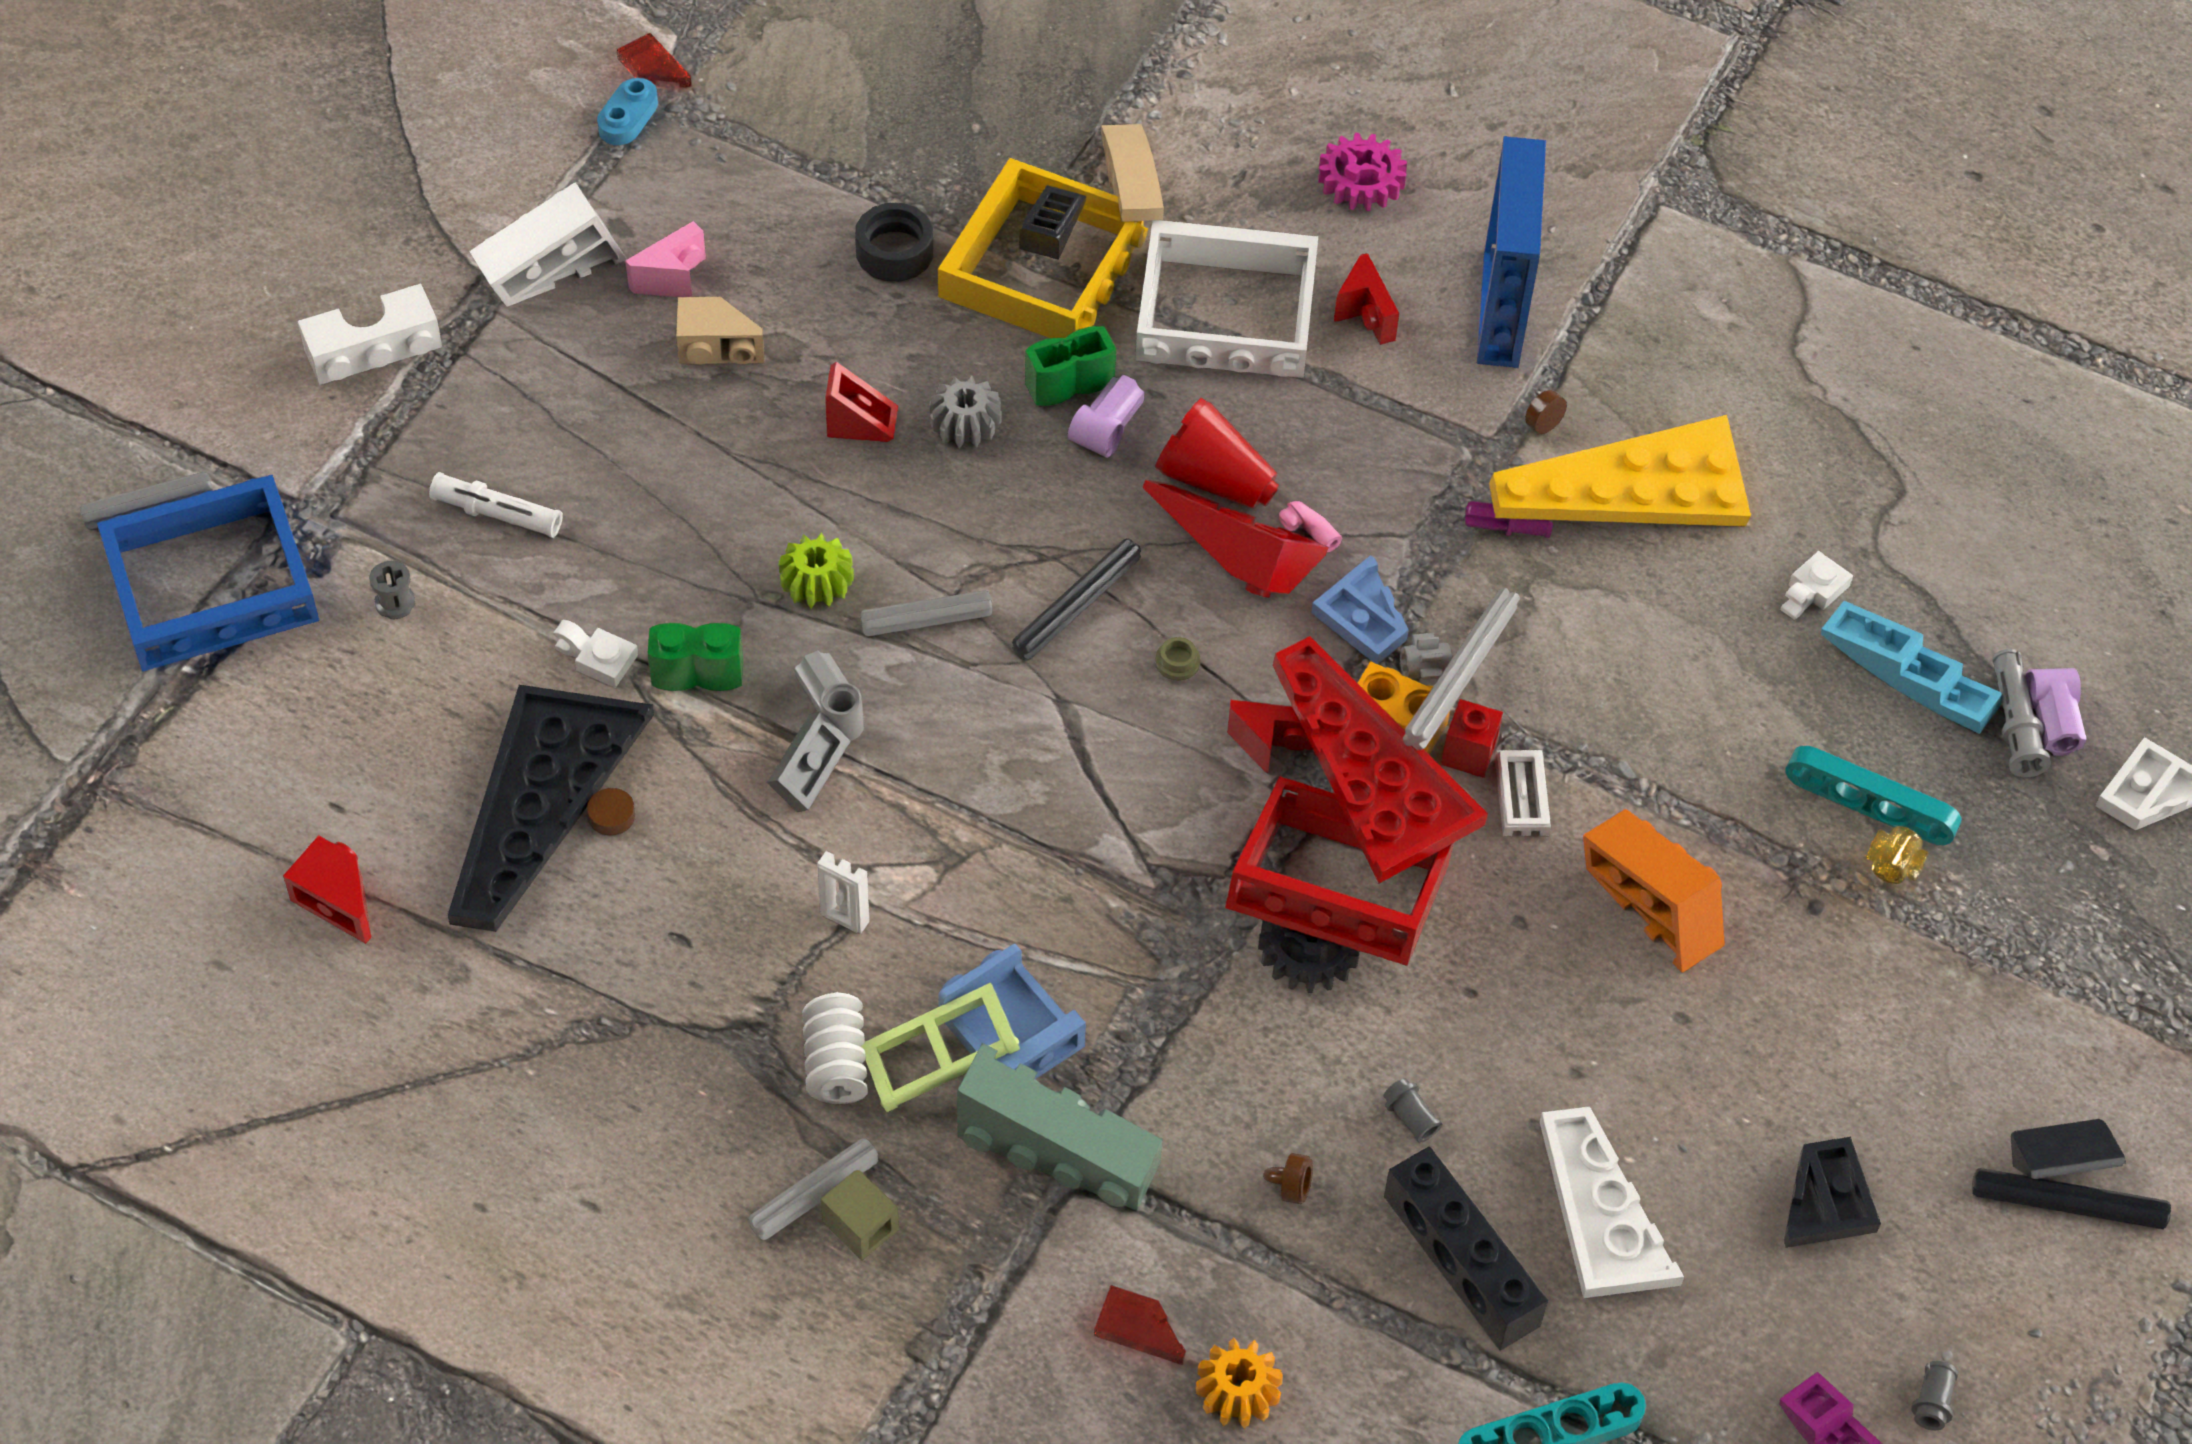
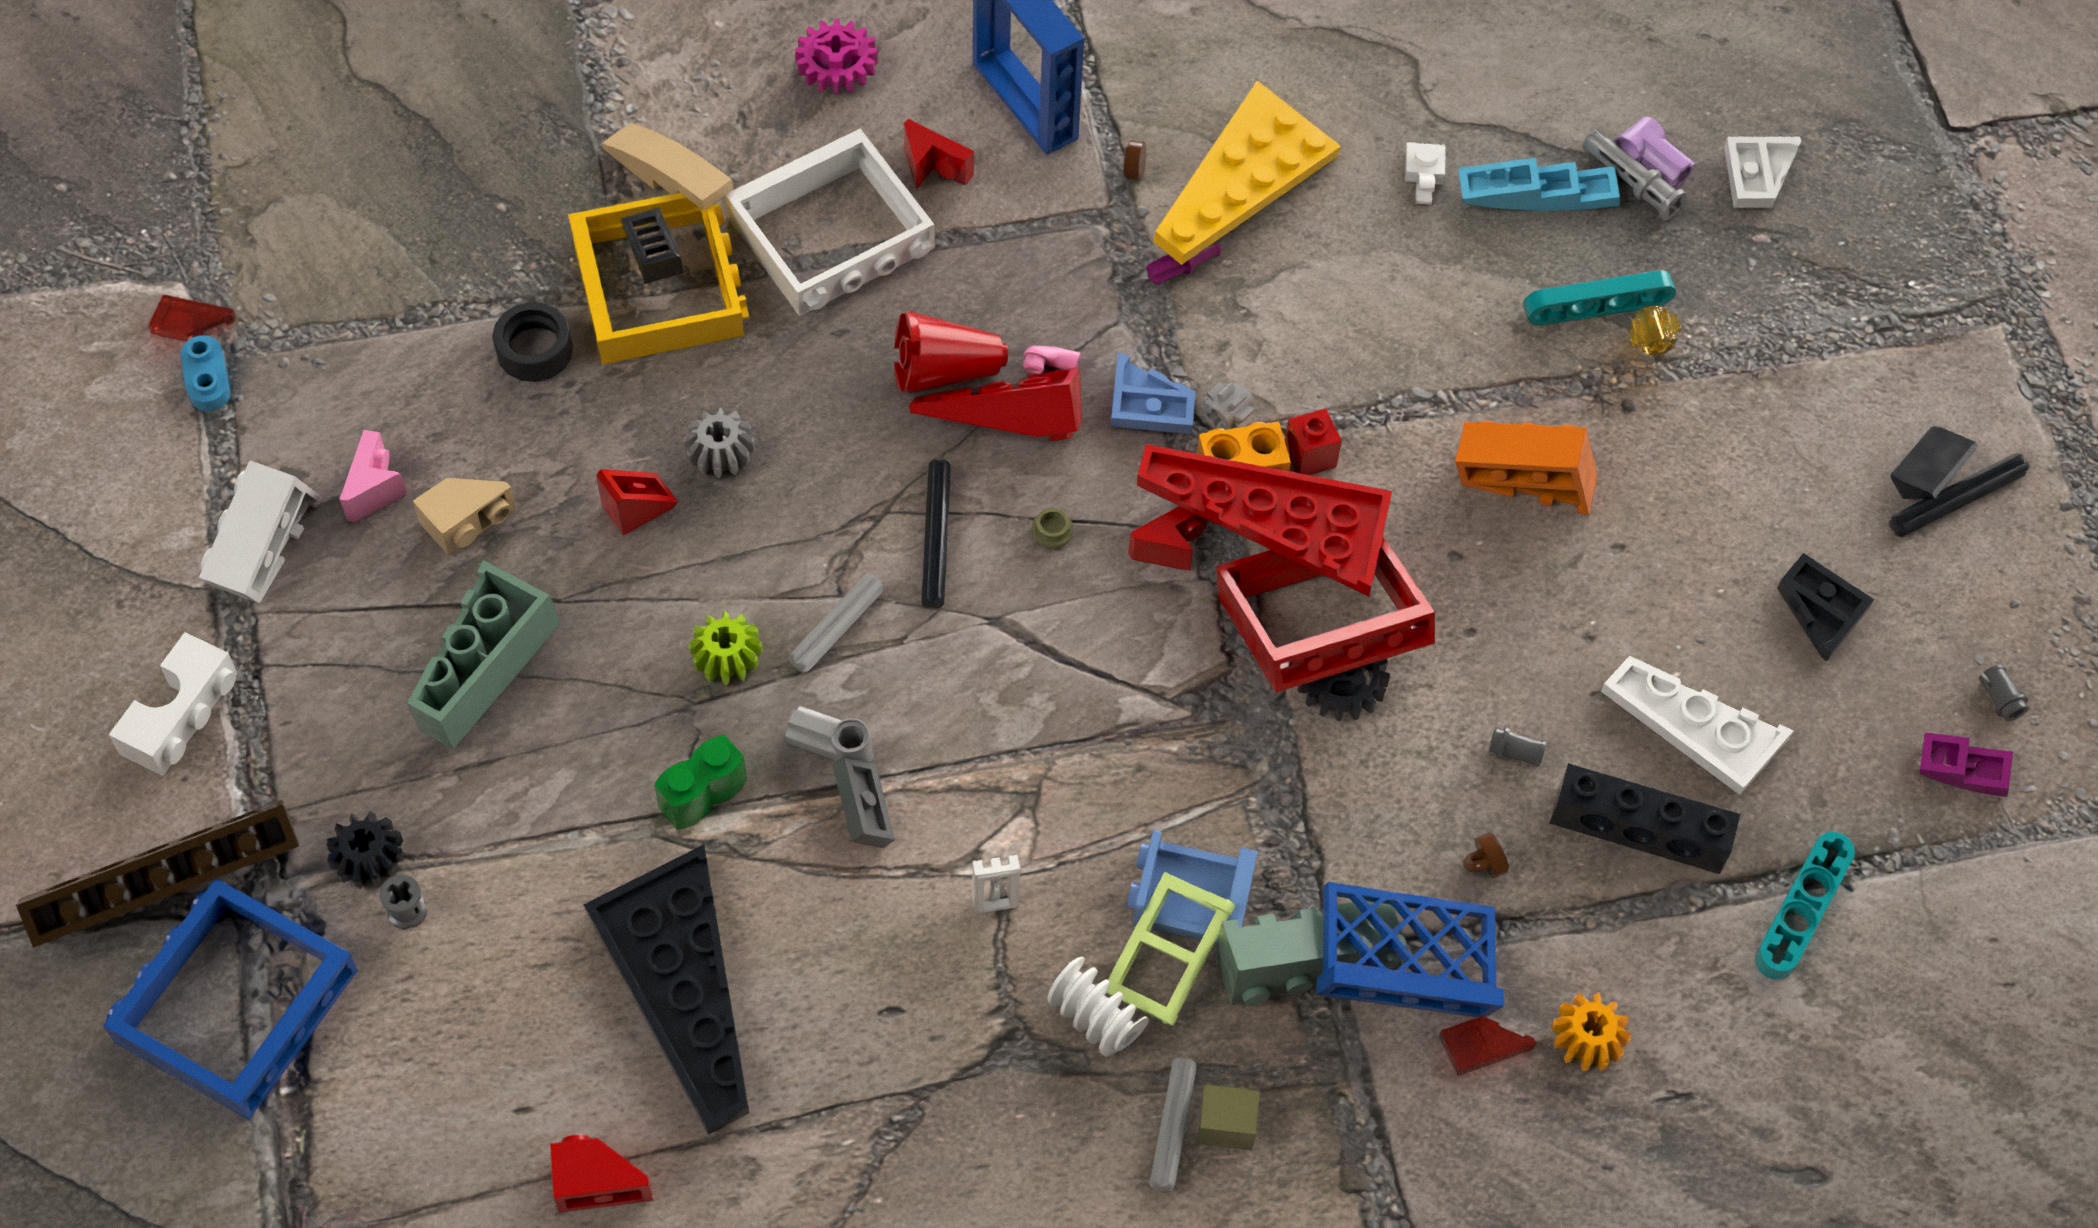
camera: 40 degrees left, 5 degrees up
(144, 498) = (113, 976): light grey axle -> none
(240, 444) = (157, 873): none -> dark brown brick
(402, 532) = (362, 866): none -> black gear
(476, 493) = (365, 787): white pin -> none
(599, 656) = (620, 834): white plate -> none
(611, 811) = (746, 952): reddish brown tile -> none
(620, 447) = (481, 653): none -> sand green wedge
(1069, 365) = (769, 352): green brick -> none
(1103, 422) = (828, 381): lavender piece -> none
(1104, 1222) = (1413, 988): none -> blue fence
(1460, 669) = (1267, 396): light grey axle -> none
(1524, 822) = (1368, 462): white tile -> none

